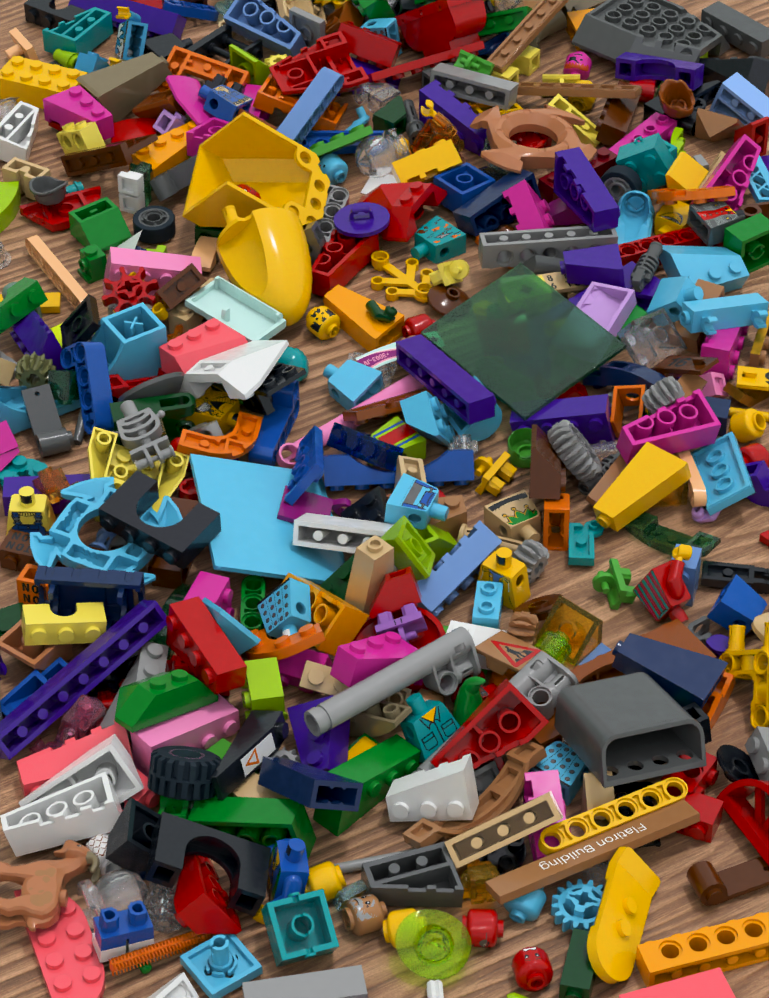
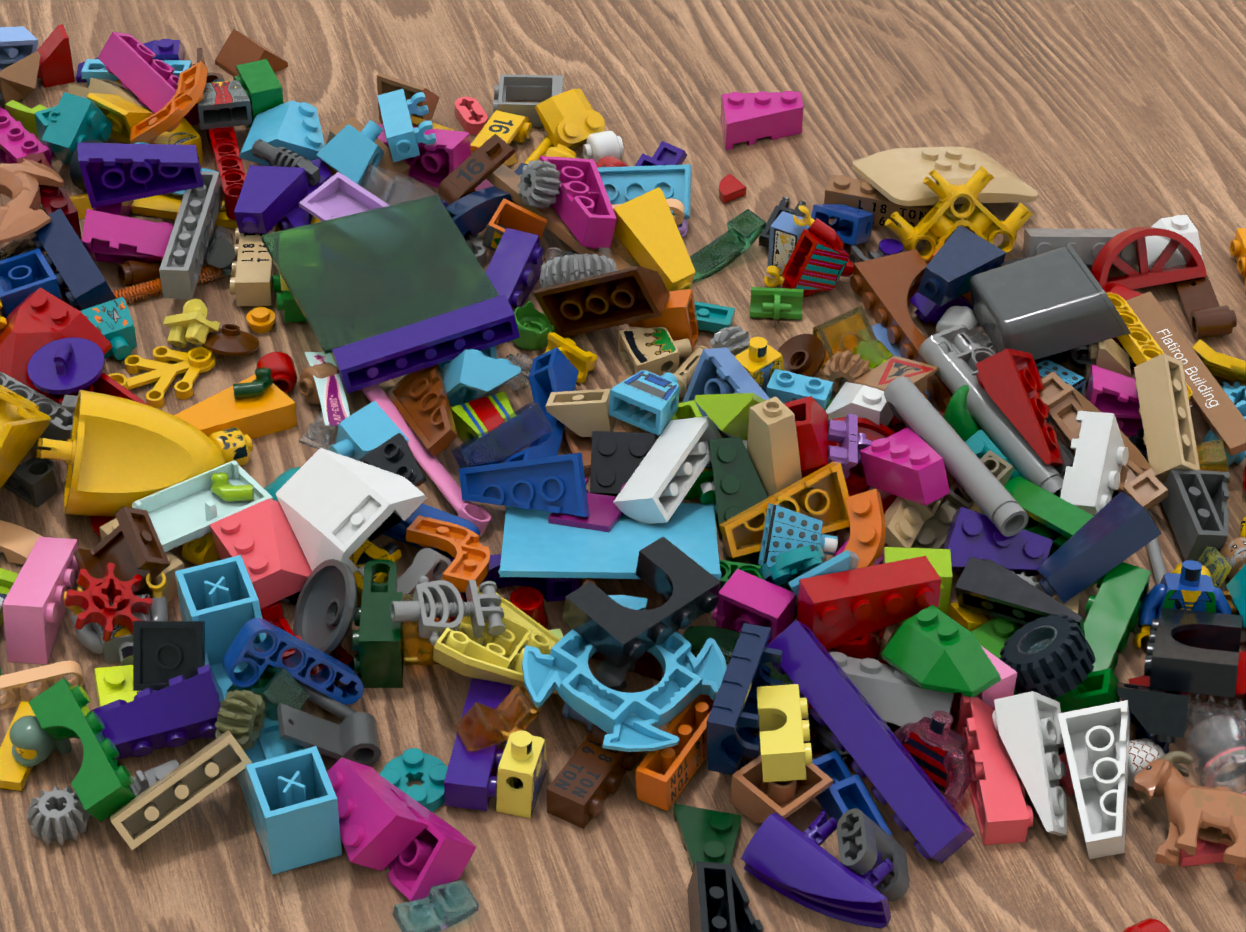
camera: 80 degrees left, 0 degrees up
(240, 609) = (792, 565): none -> teal plate
(254, 319) = (229, 492): none -> lime arm

